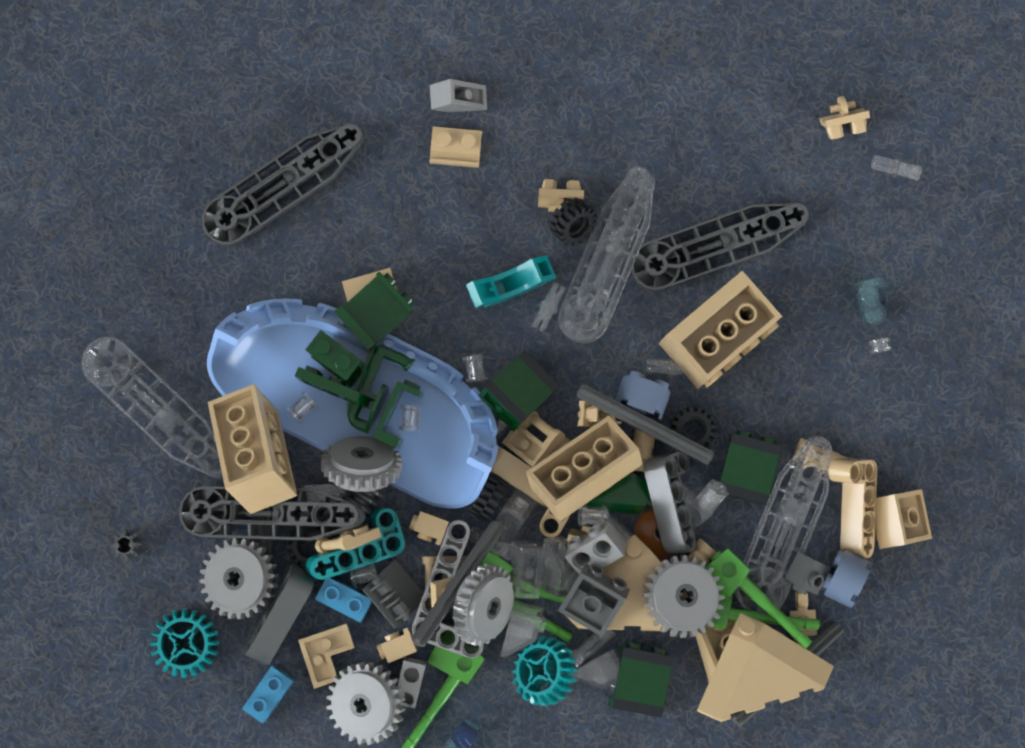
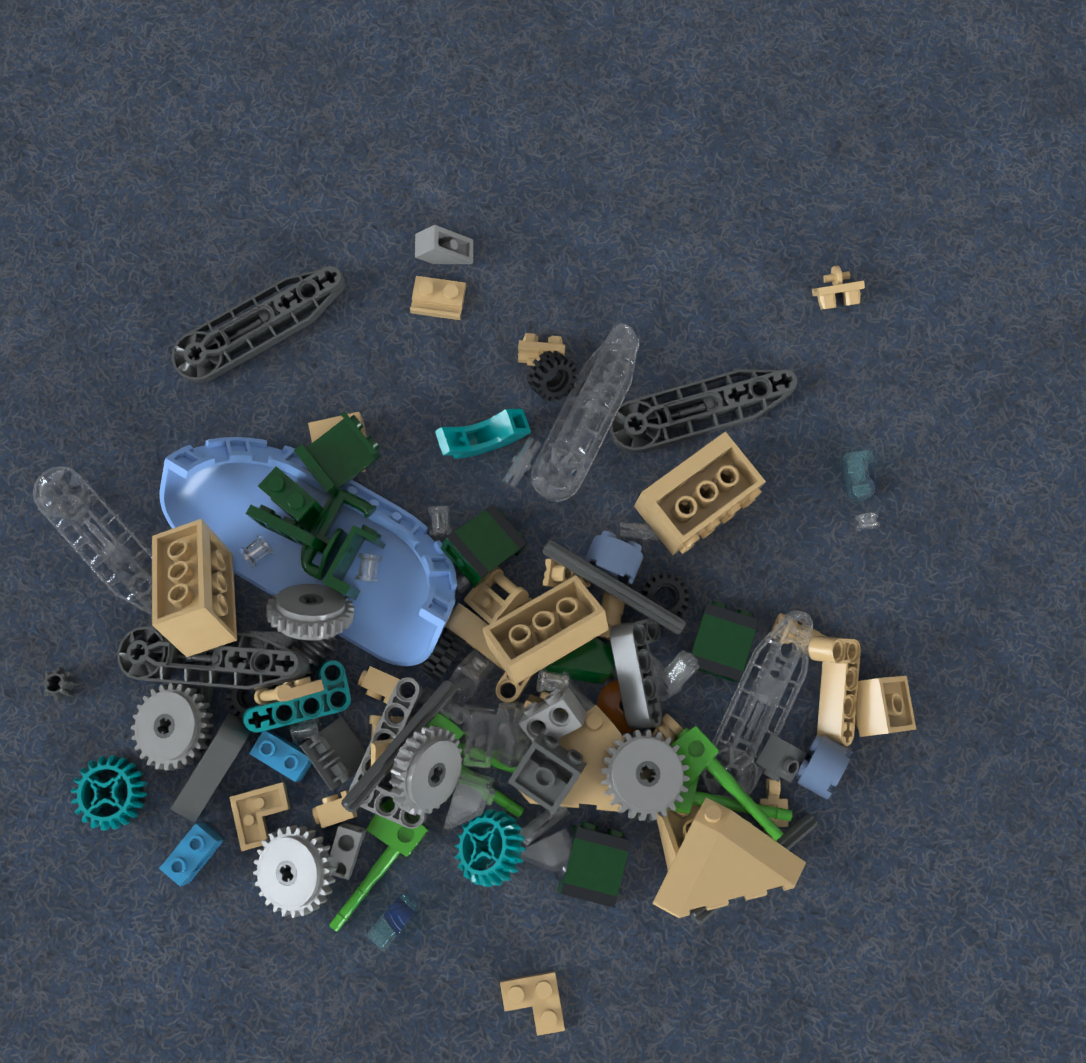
camera: 10 degrees right, 5 degrees down
(896, 167) = (889, 341): clear axle -> none

